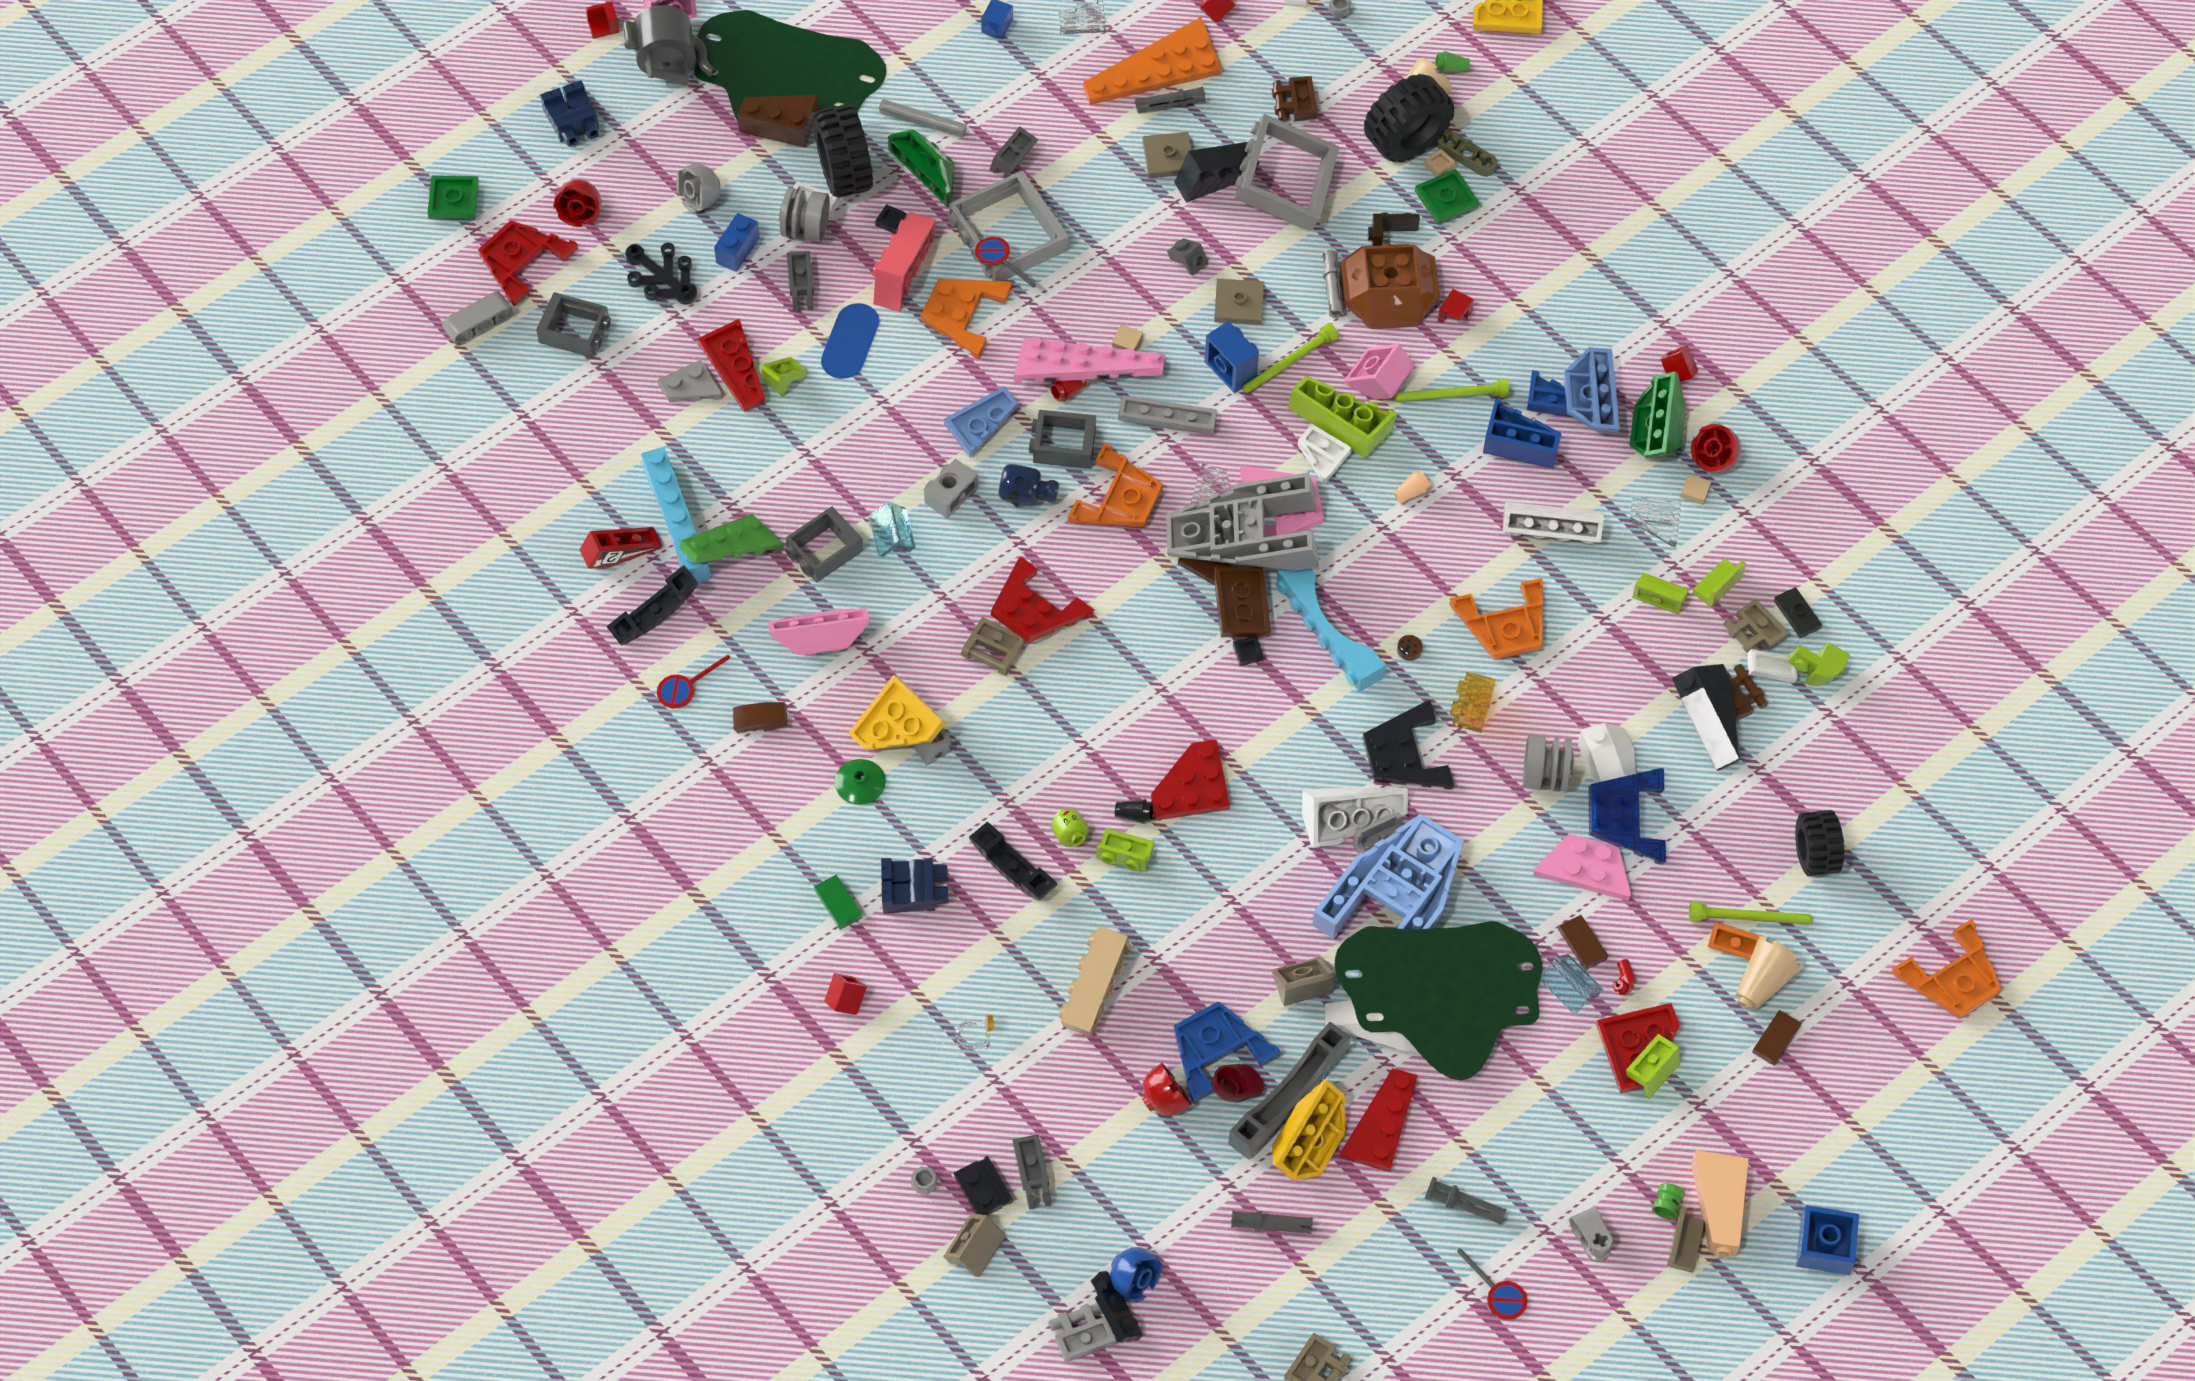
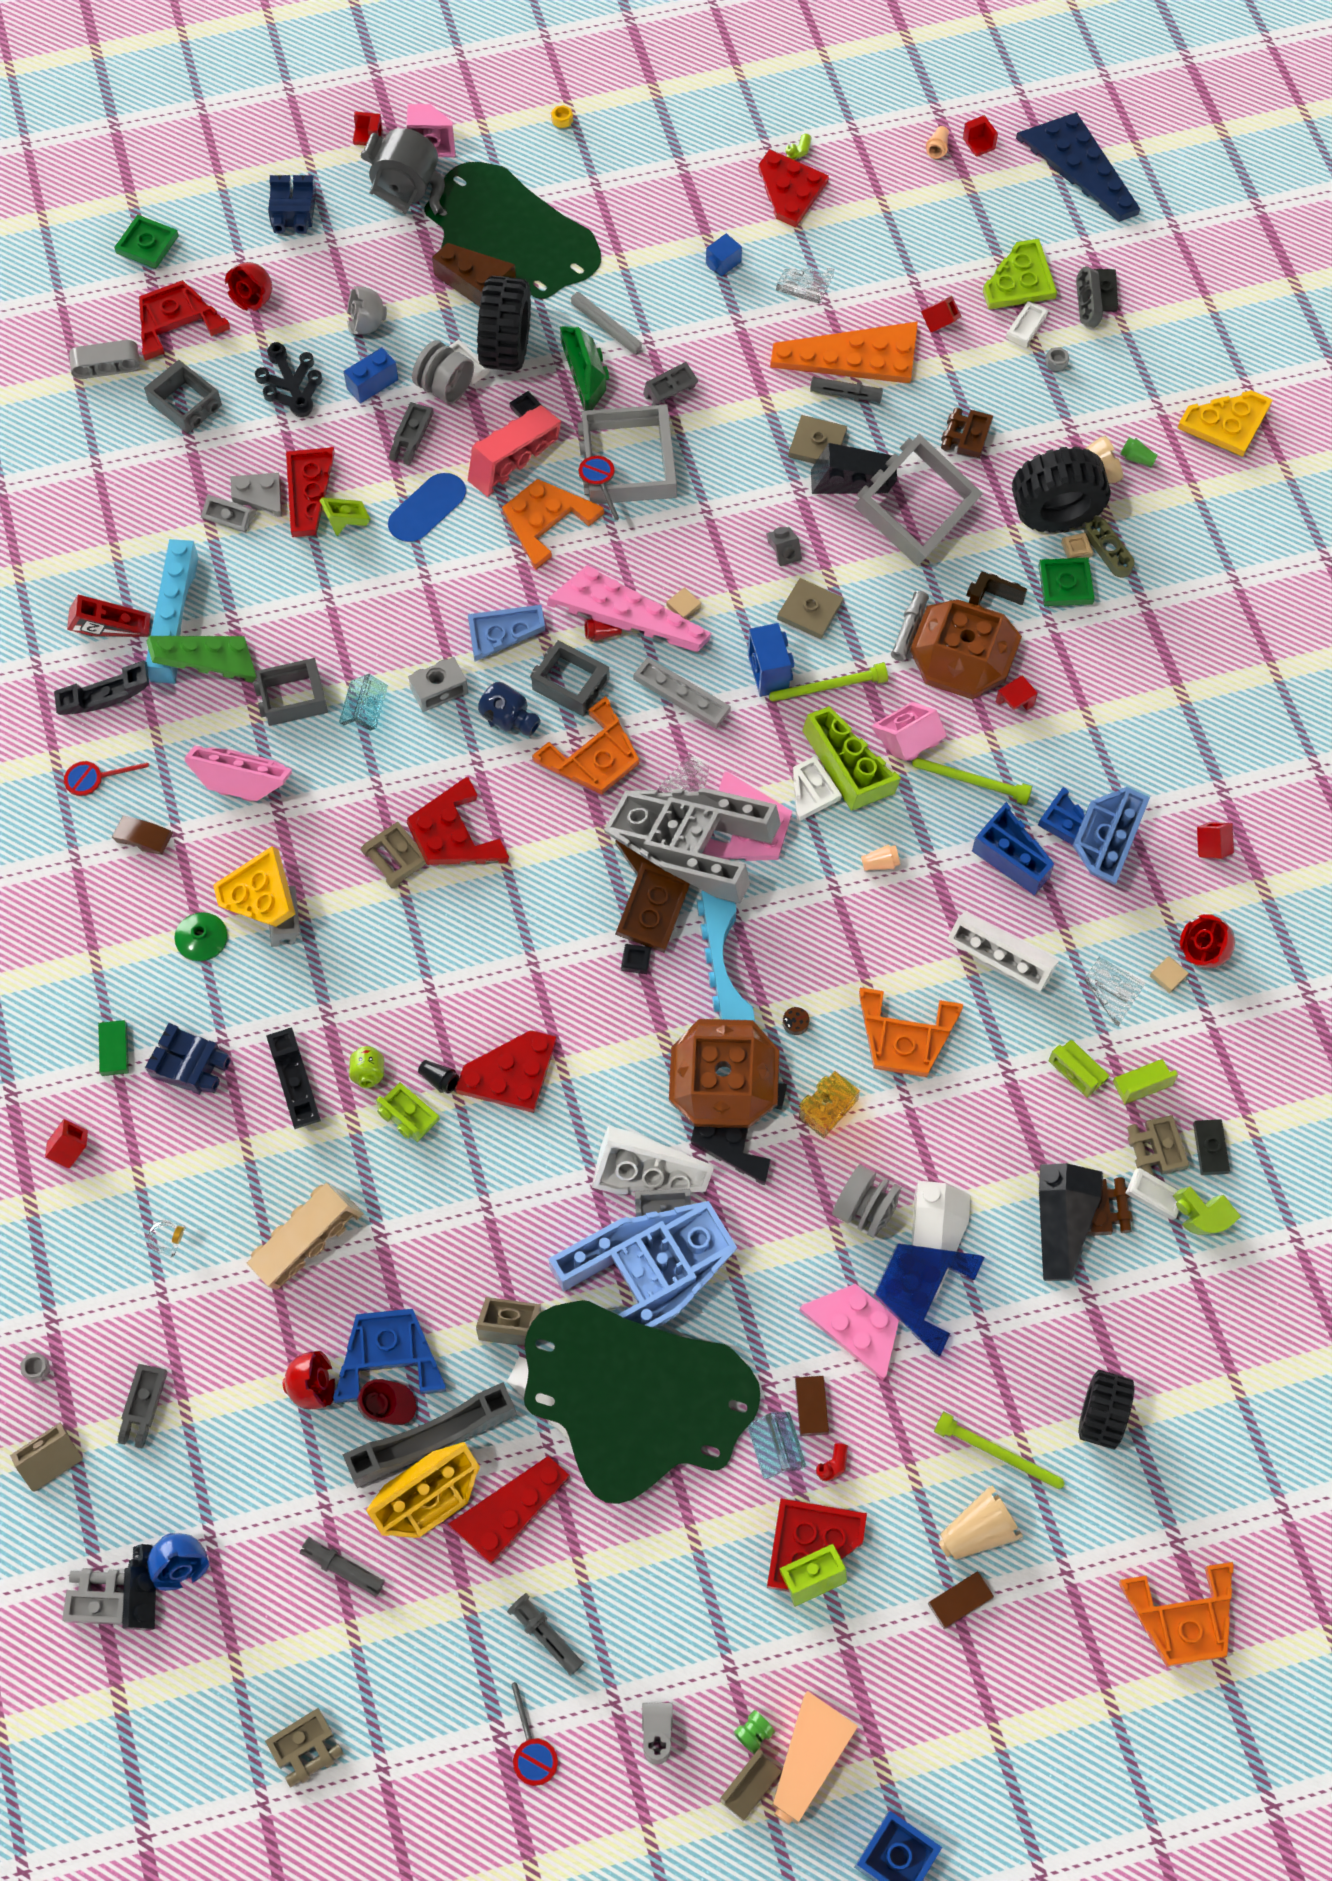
camera: 25 degrees right, 5 degrees up
(672, 413) = (227, 513): none -> light grey slope
(983, 1187) = (87, 1400): black plate -> none
(1370, 733) = (728, 1100): none -> dark orange piece
(1659, 417) = (1166, 887): green wedge -> none
(1733, 940) = (970, 1471): orange slope -> none

